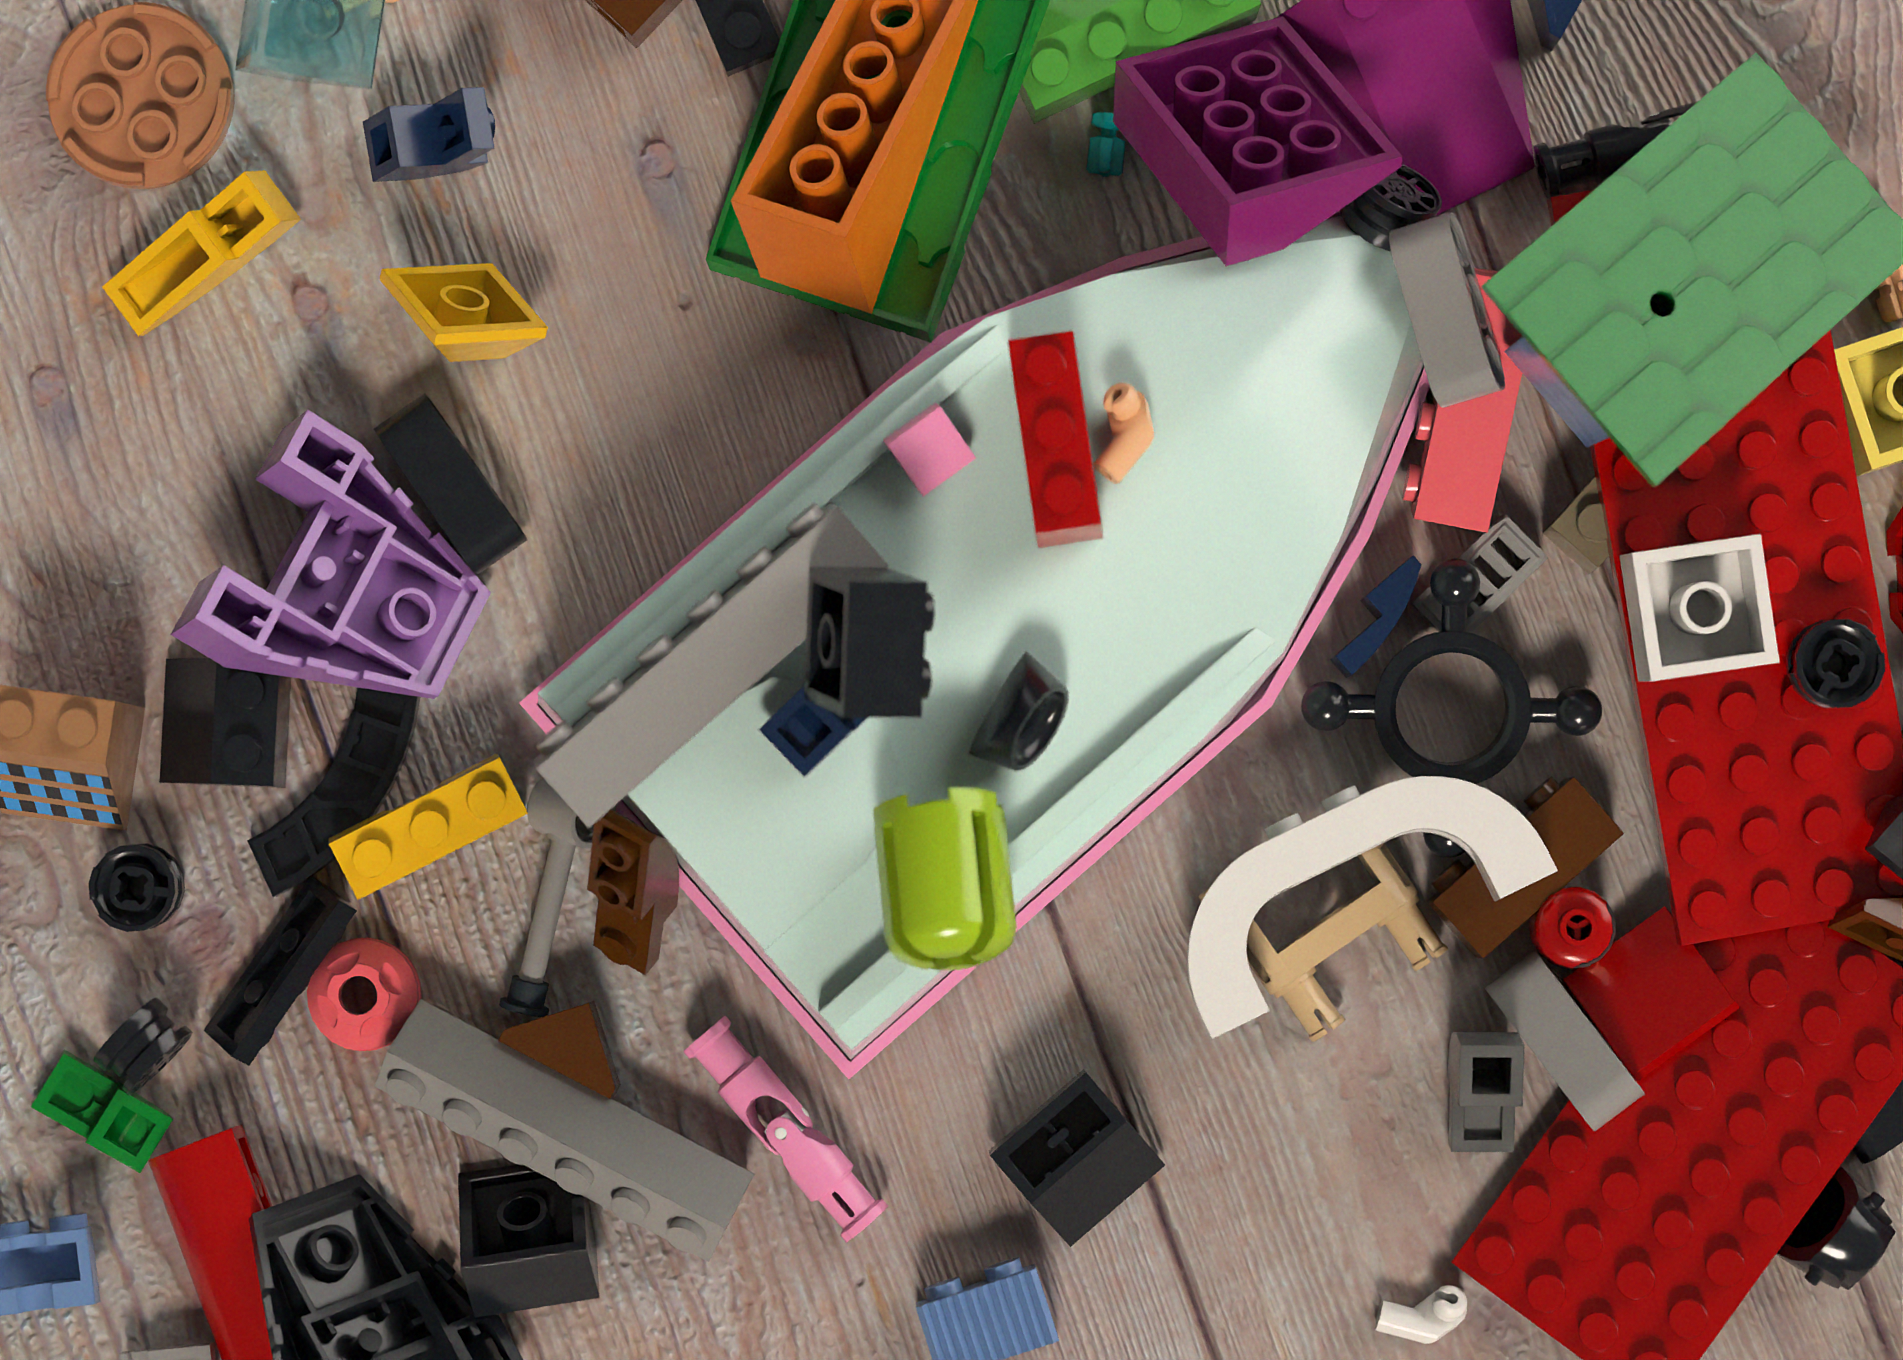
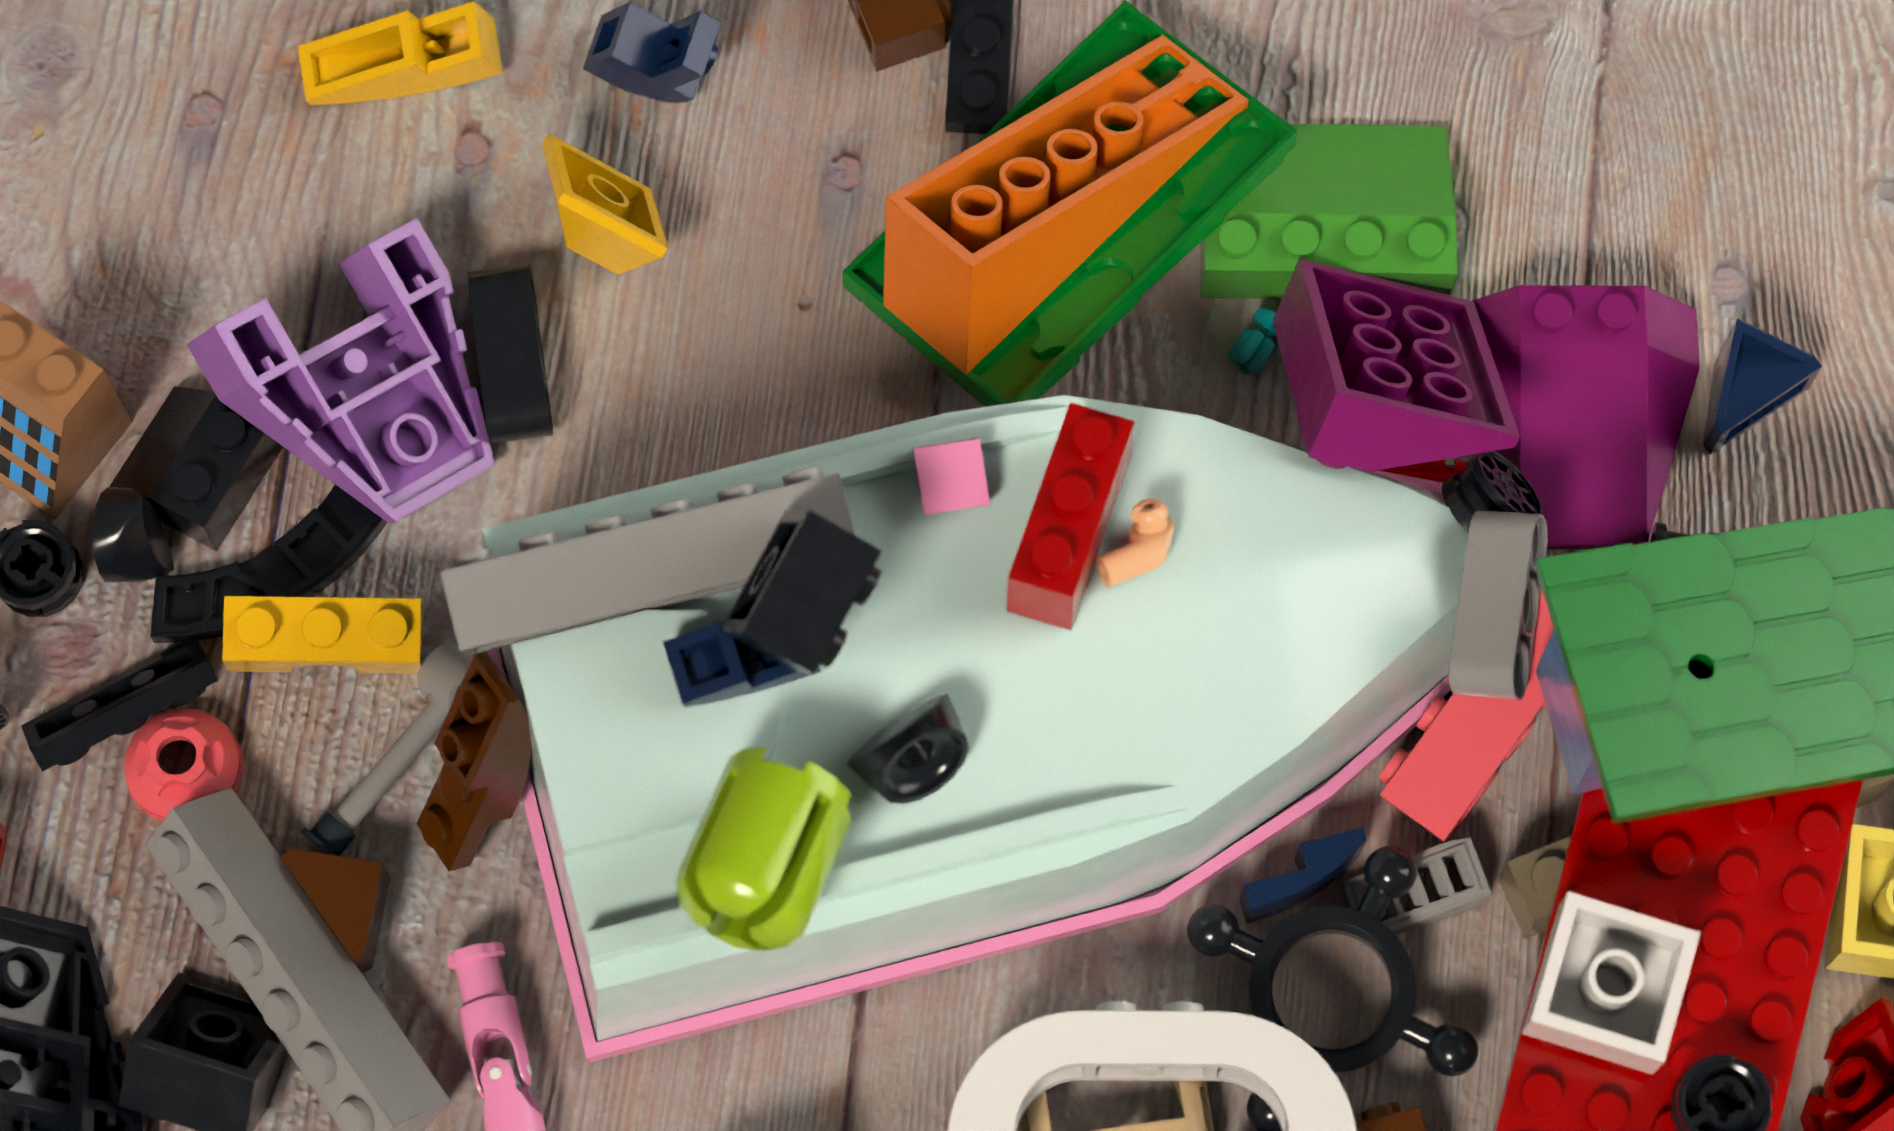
camera: 25 degrees right, 15 degrees down
(208, 823) = (129, 538): none -> black piece

